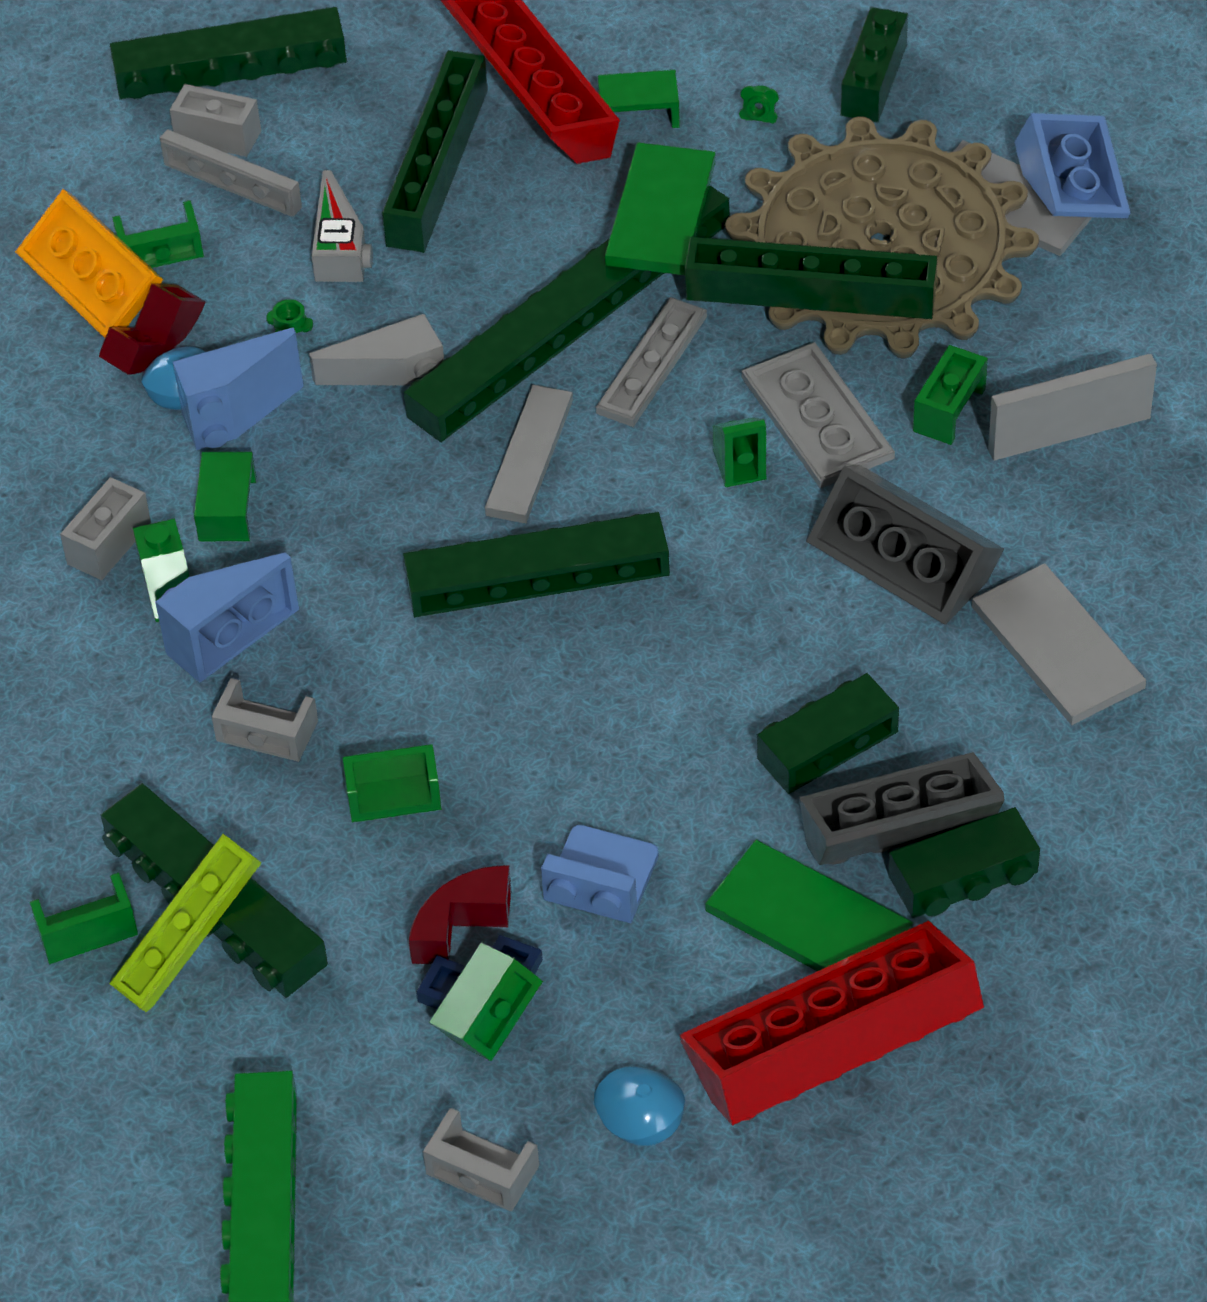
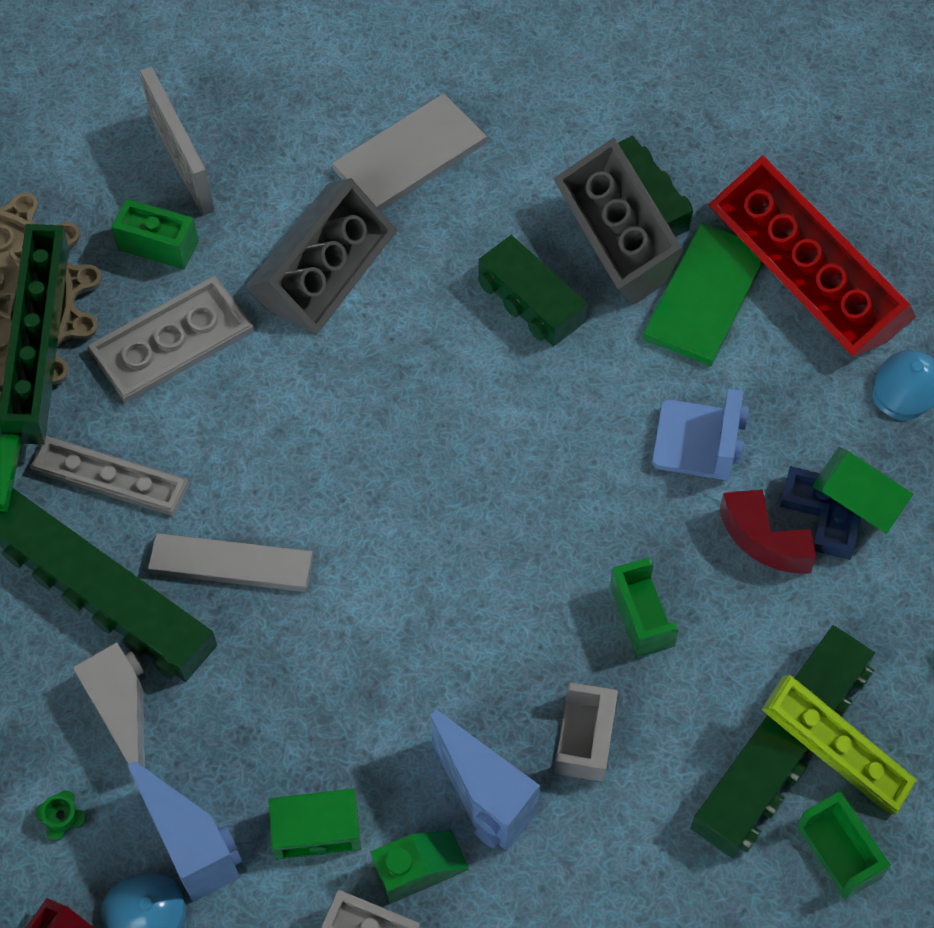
camera: 100 degrees left, 10 degrees up
(536, 564) = (375, 532): dark green brick -> none
(740, 450) = (227, 379): green slope -> none

